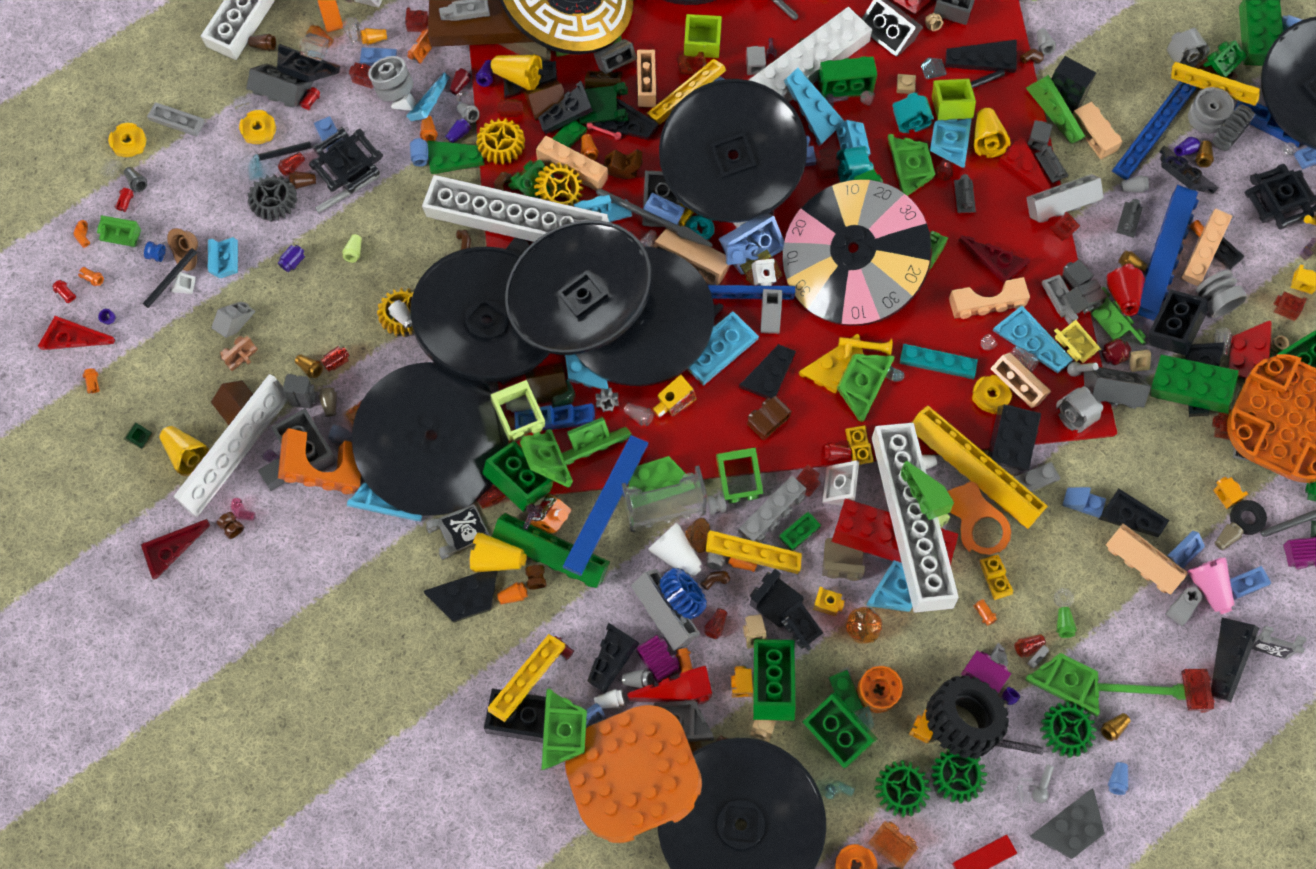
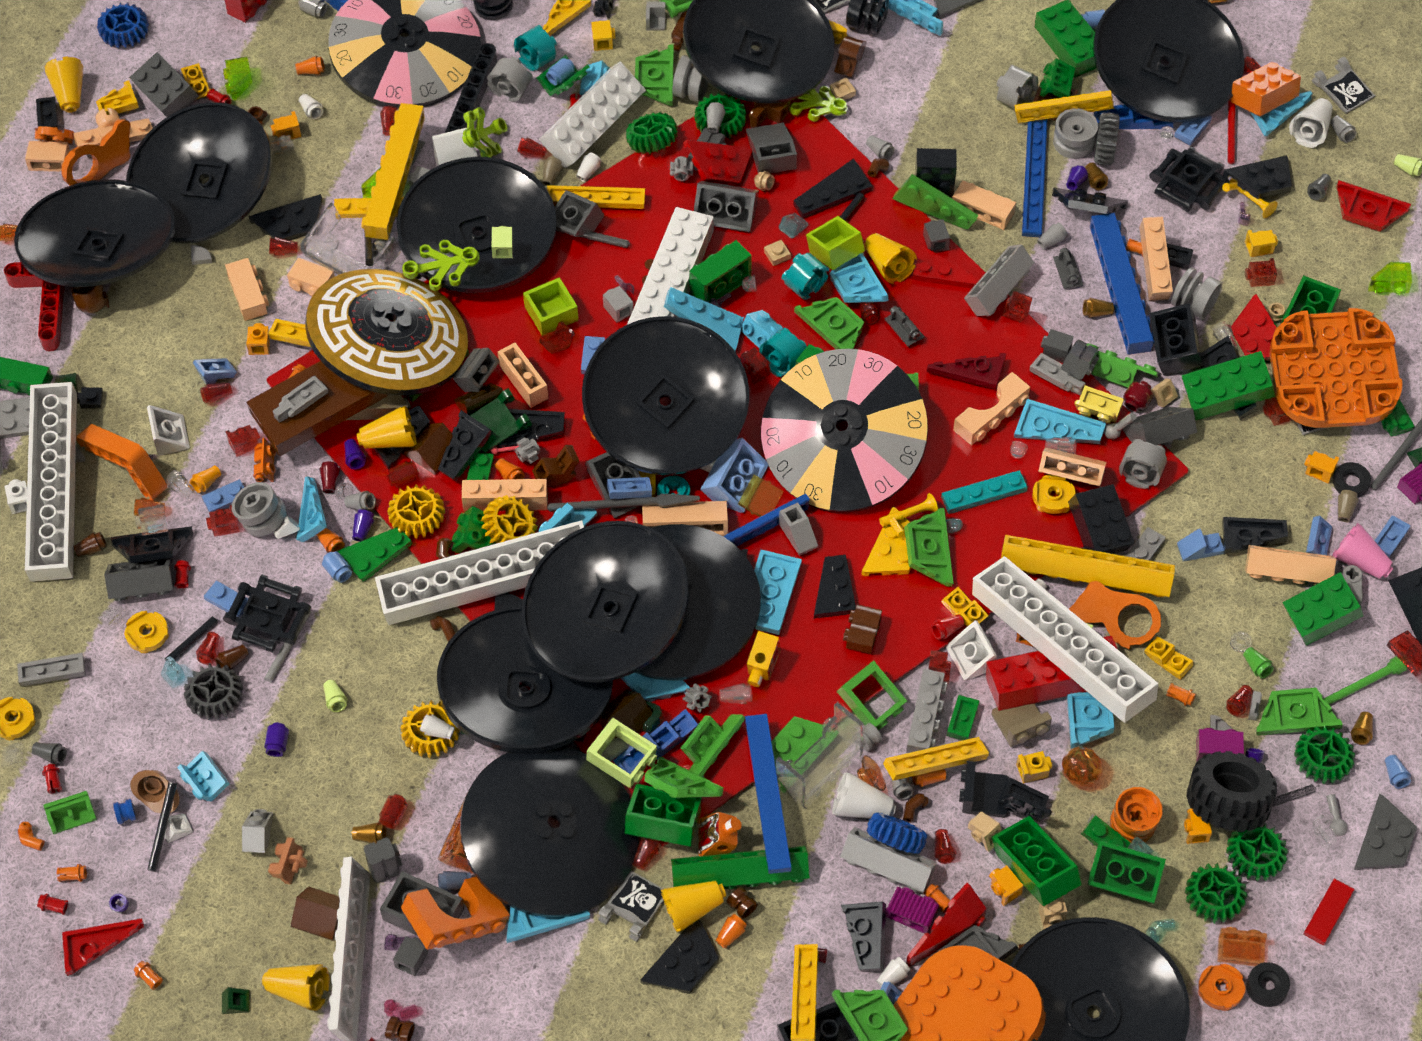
camera: 30 degrees left, 10 degrees down
(328, 400) = (413, 853): dark tan cone -> none
(530, 509) = (702, 842): hand -> none
(611, 138) = (527, 450): none -> light grey gear
(638, 678) = (906, 938): light grey cone -> none
(702, 77) = (571, 367): yellow plate -> none
(738, 253) = (731, 491): medium blue plate -> none
(758, 268) = (766, 497): white brick -> none
(930, 494) = (1065, 606): bright green slope -> none
(1051, 164) = (964, 257): dark grey hinge -> none
(1126, 287) = (1110, 332): red cone -> none
(1147, 611) = (1323, 609): none -> green brick

